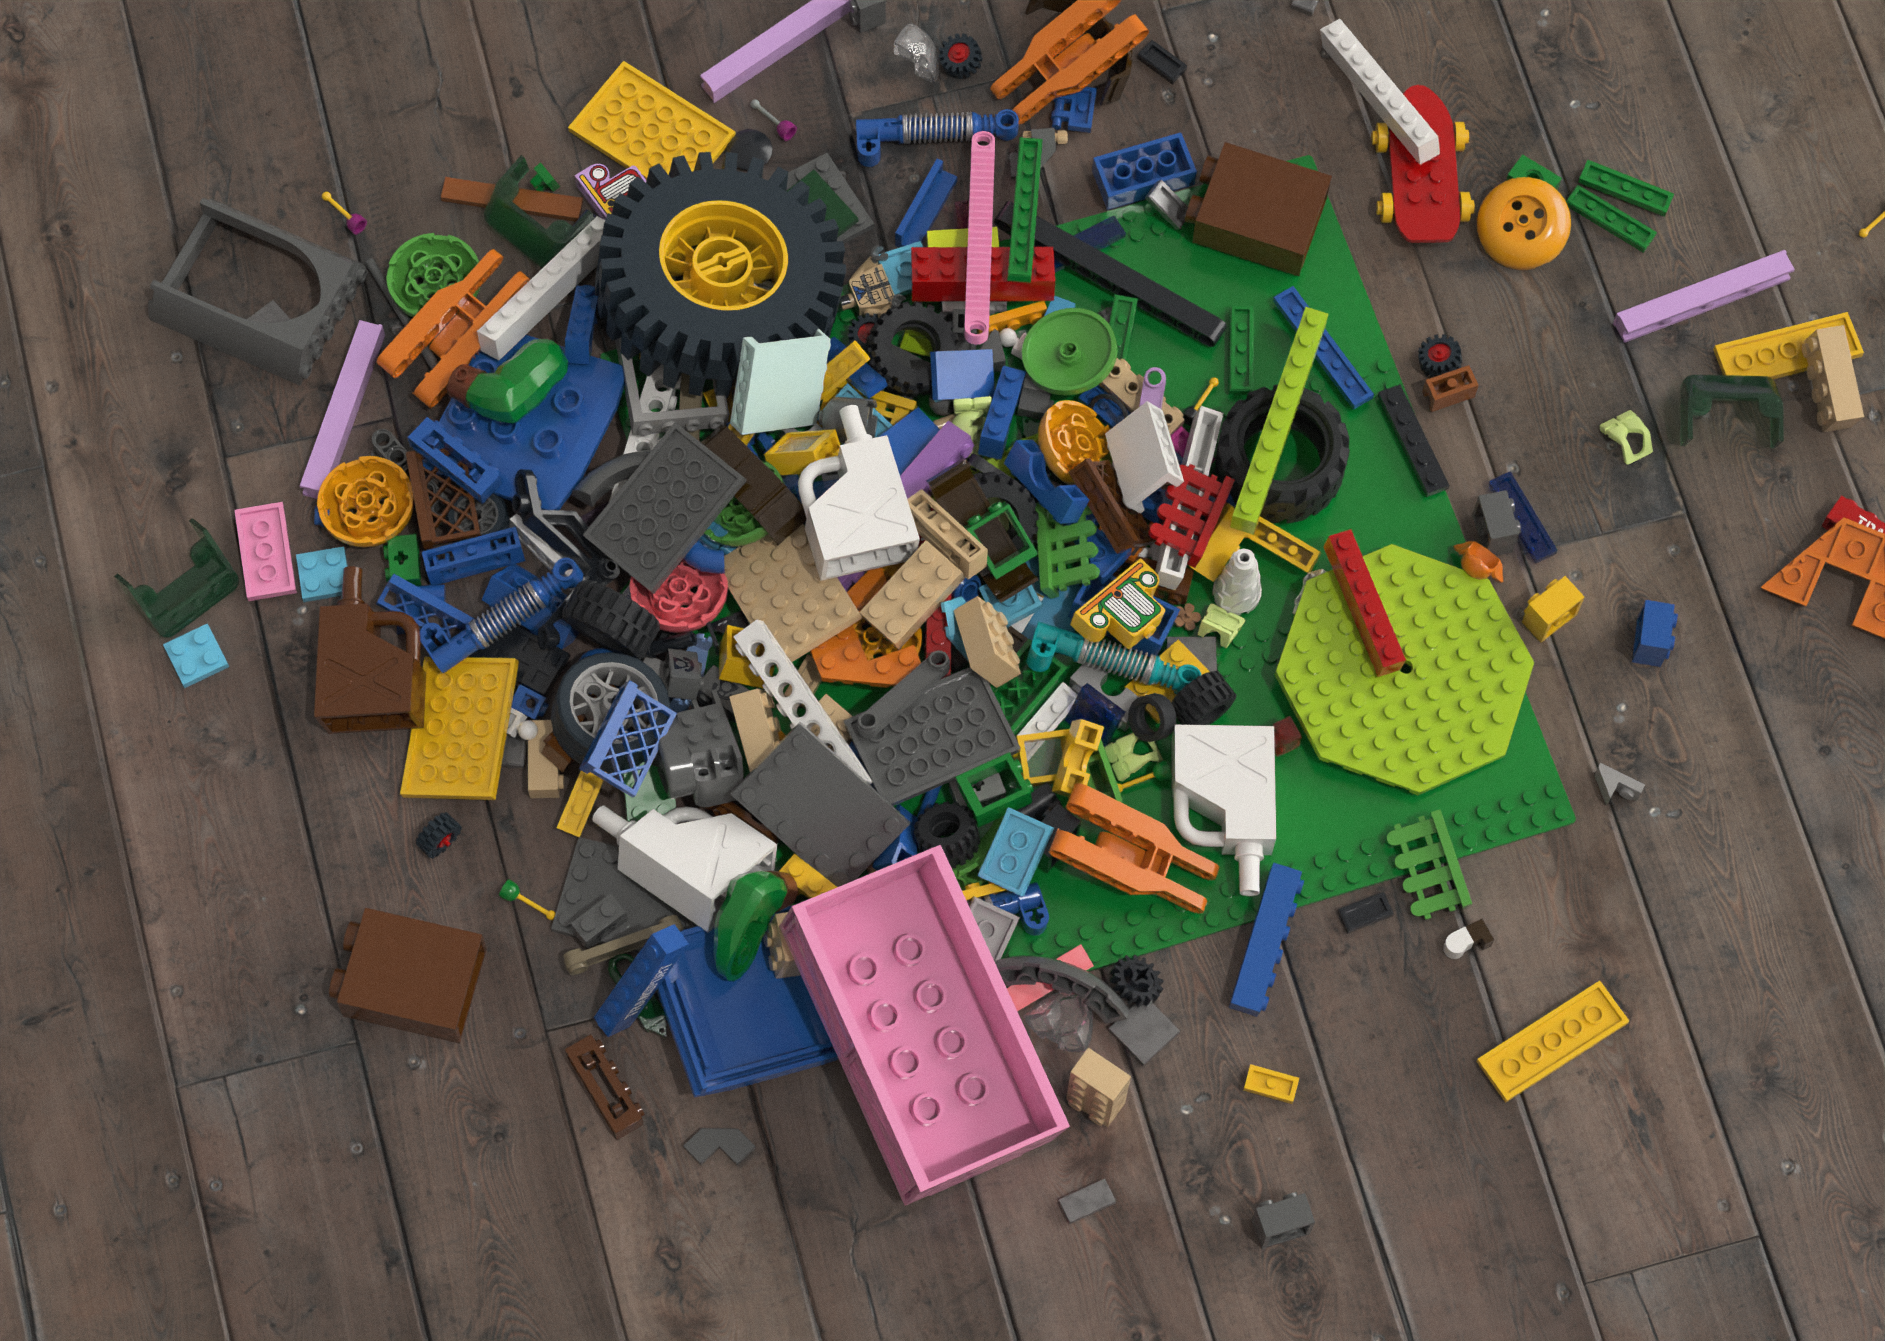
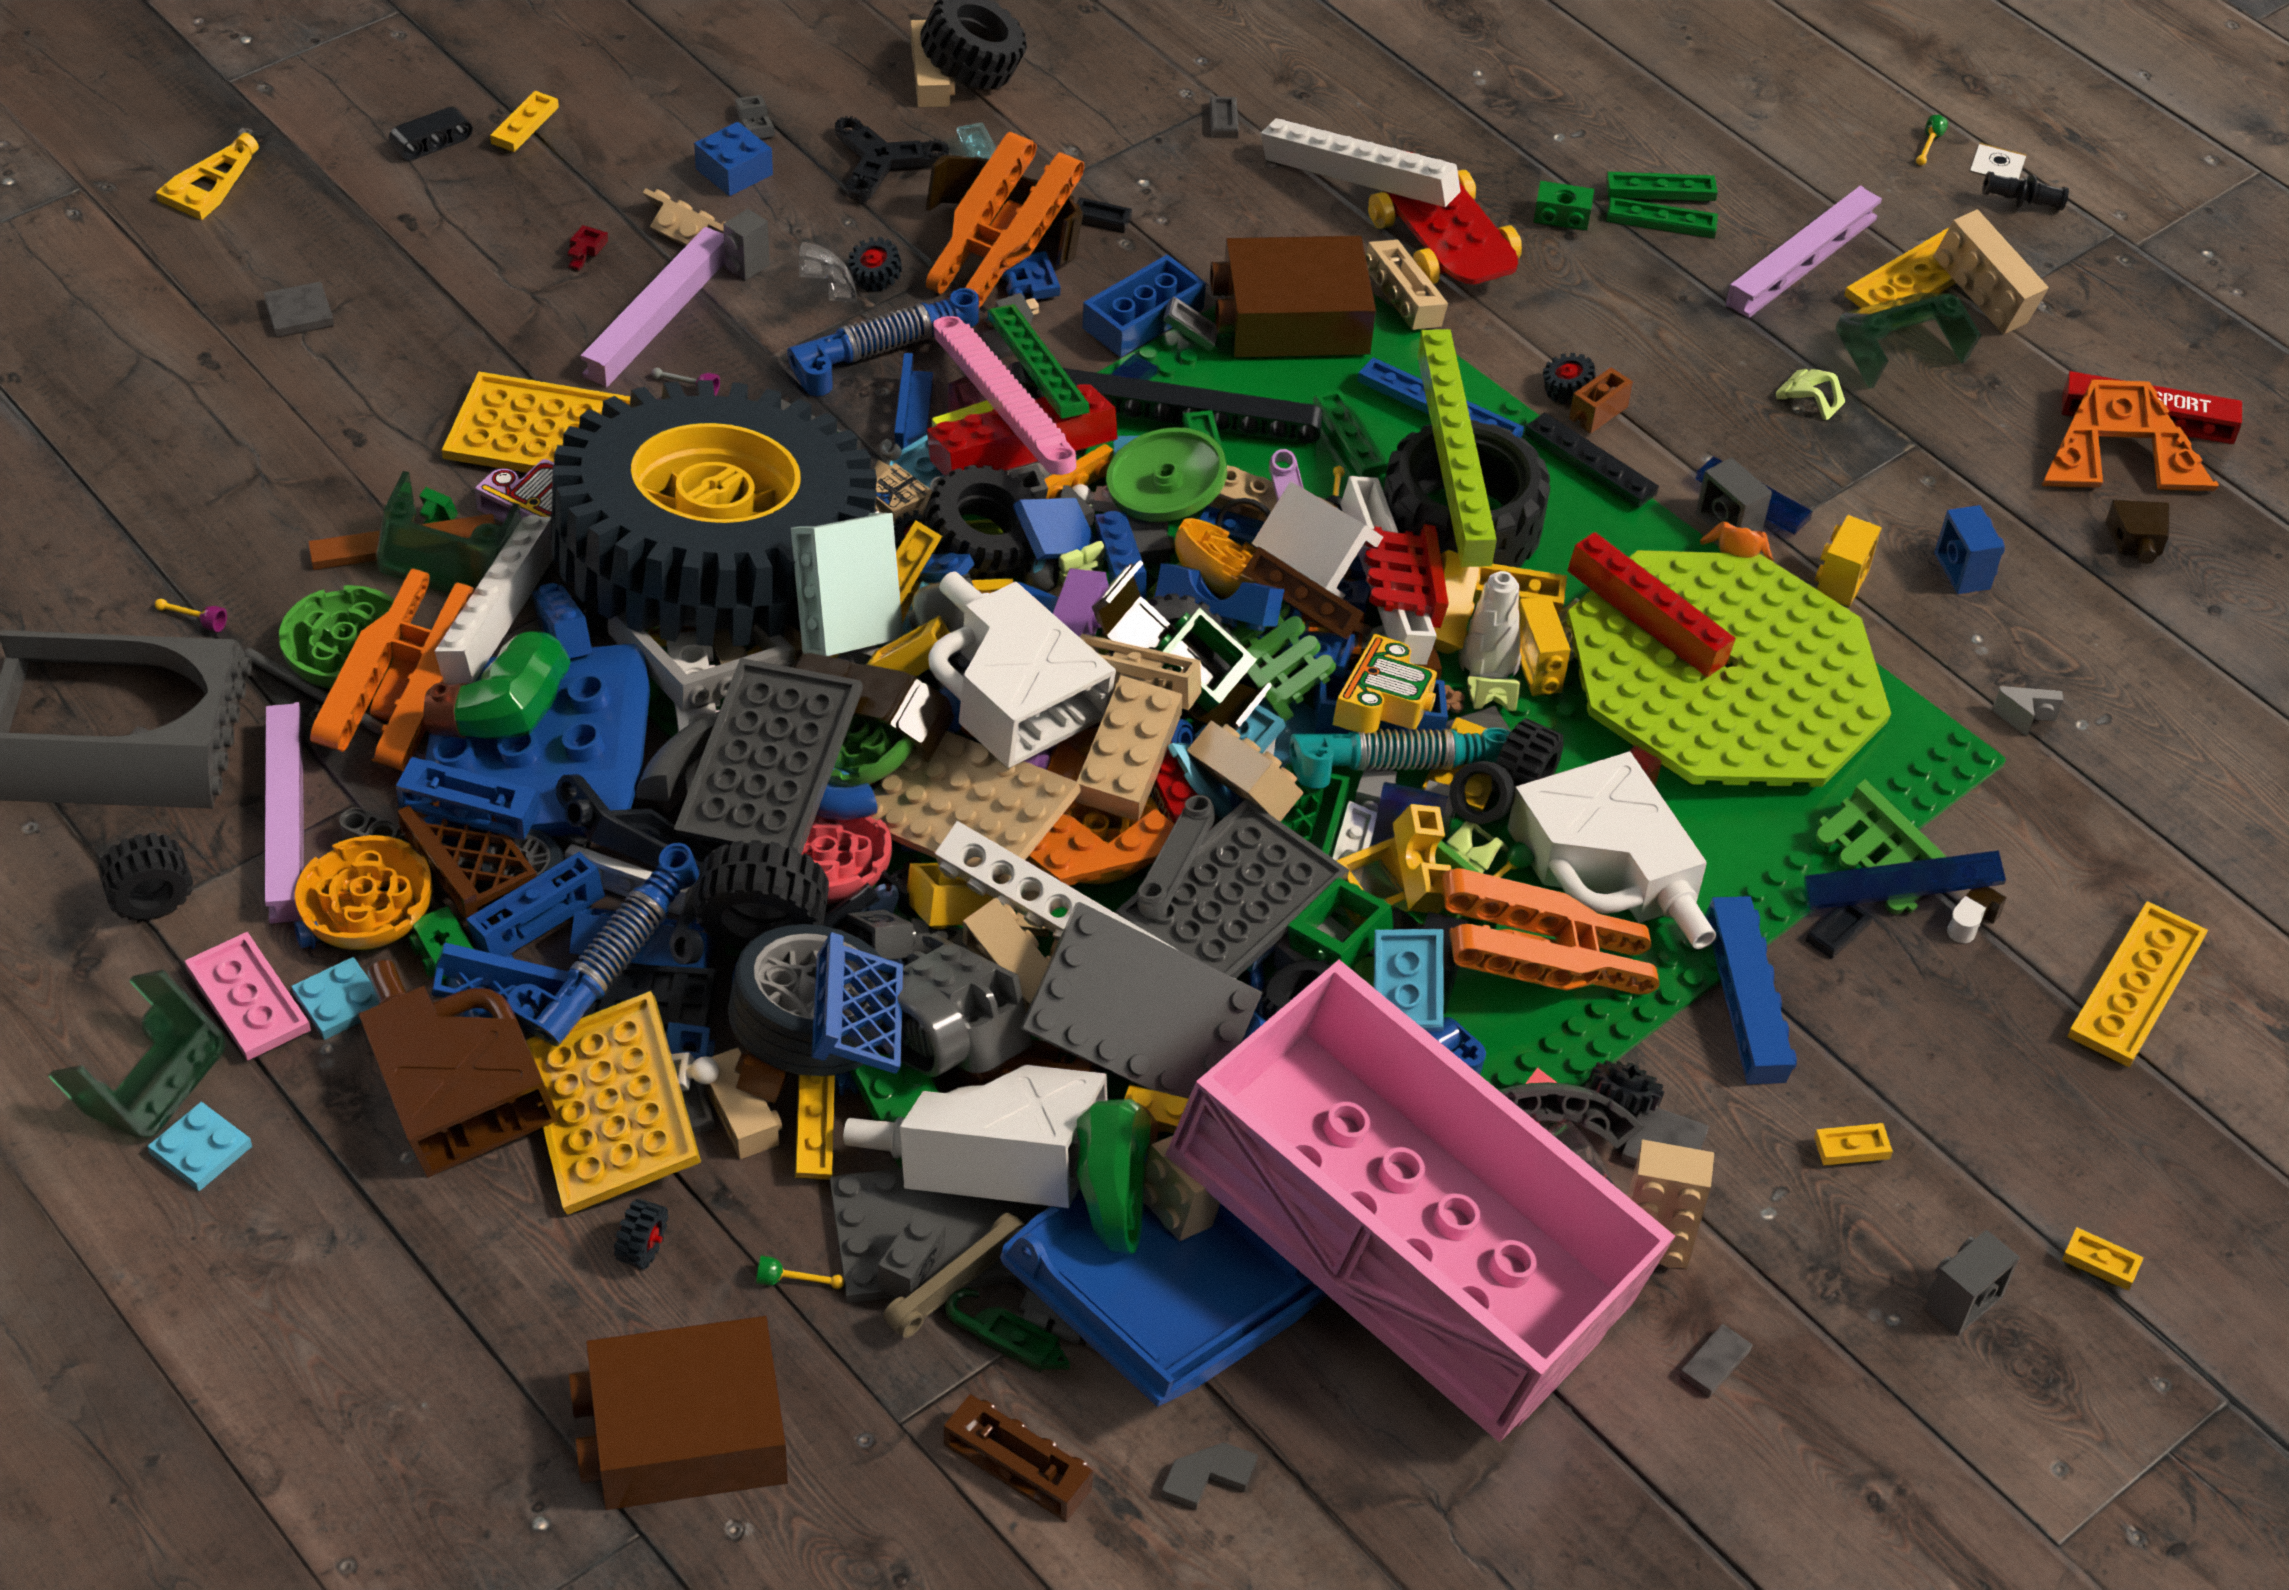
camera: 25 degrees left, 20 degrees down
(229, 437) = (145, 877): none -> black tyre
(641, 980) = (1017, 1282): blue brick -> none
(1271, 603) = (1542, 646): none -> yellow window
(1353, 190) = (1405, 285): none -> tan brick
(1391, 1237) = (2102, 1258): none -> yellow plate
(1427, 897) = (1904, 880): none -> clear blue tile
(1512, 247) = (1578, 262): light orange brick -> none
(1808, 660) = (2139, 528): none -> dark brown torso

